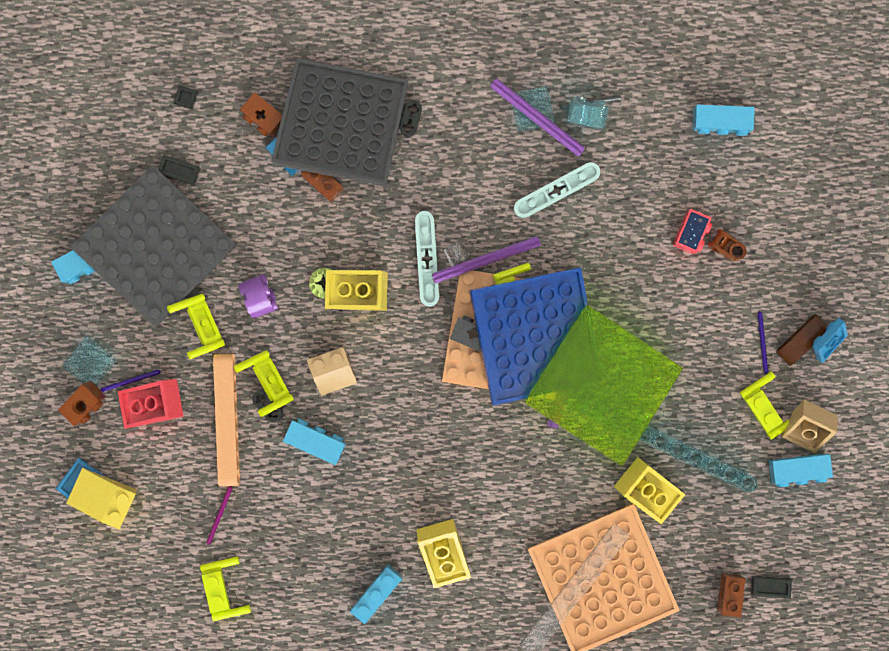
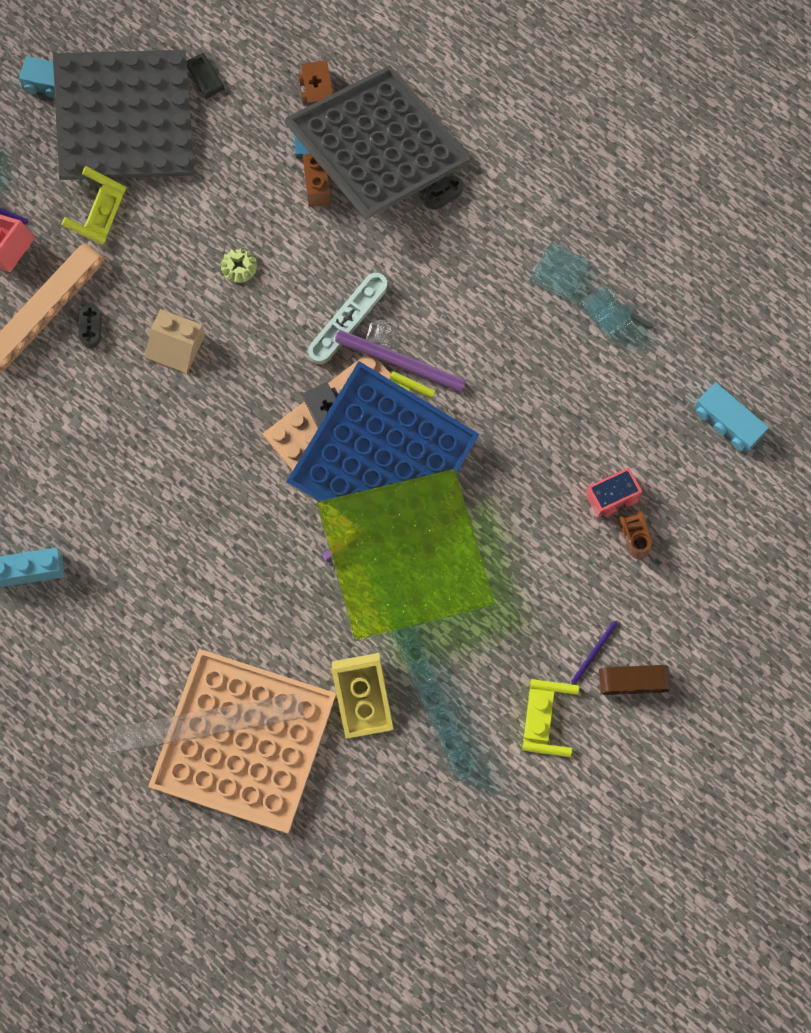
camera: 45 degrees right, 15 degrees down
(185, 97) = (266, 24): pearl dark grey tile -> none
(258, 296) = (170, 224): medium lavender brick -> none
(269, 379) = (113, 302): neon yellow plate -> none
(315, 441) = (101, 389): medium azure brick -> none
(356, 290) = (261, 291): light yellow slope -> none
(443, 553) = (118, 585): light yellow slope -> none
(537, 117) = (558, 279): medium lavender axle -> none
(573, 181) = (497, 351): light aqua piece -> none
(731, 595) = (351, 862): dark orange brick -> none
(771, 587) = (397, 893): pearl dark grey tile -> none
(800, 469) = (525, 800): medium azure brick -> none
(810, 426) = (570, 773): tan slope -> none
(830, 340) = (660, 698): dark azure plate -> none

